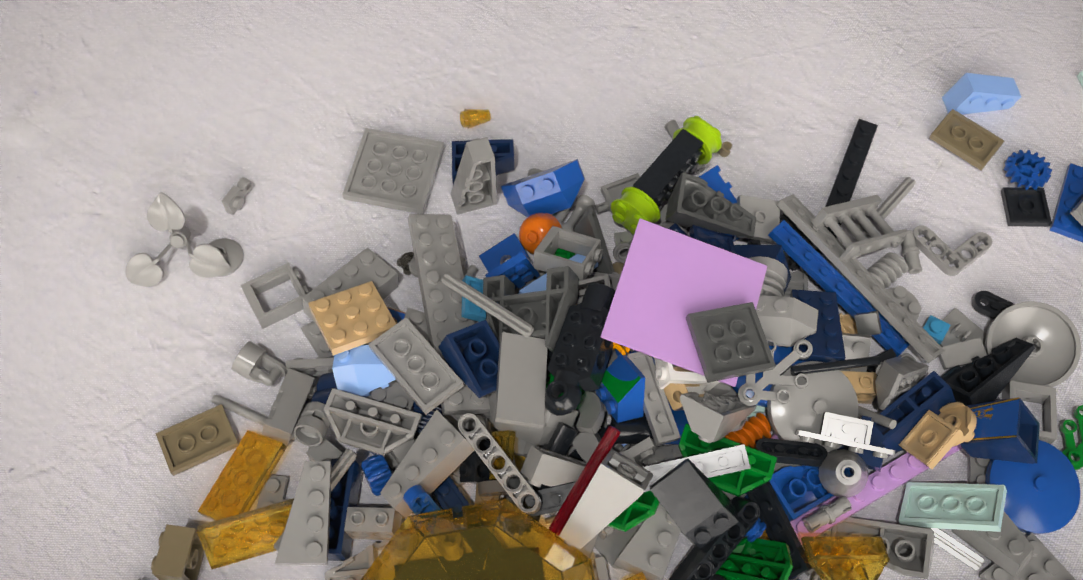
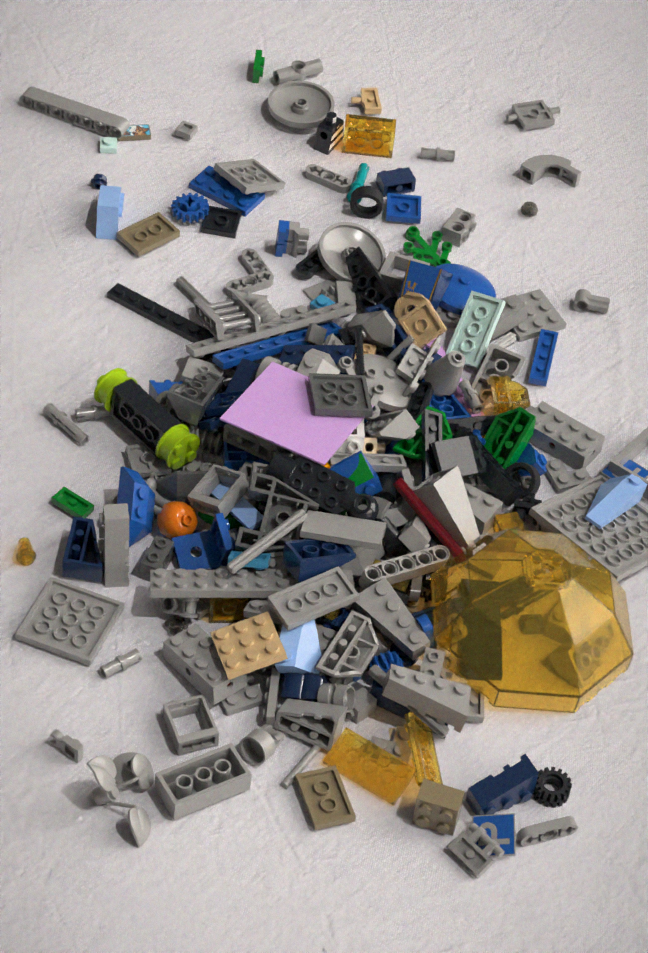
camera: 85 degrees left, 15 degrees down
(199, 316) = (202, 781): none -> light grey brick
(348, 222) = (120, 663): none -> light grey pin
(486, 227) = (157, 556): none -> dark grey brick
(547, 144) = (72, 503): none -> green plate
(659, 112) = (60, 419): none -> light grey pin
(1023, 274) = (288, 238): none -> hips
(1026, 81) = (99, 179): none -> dark blue plate

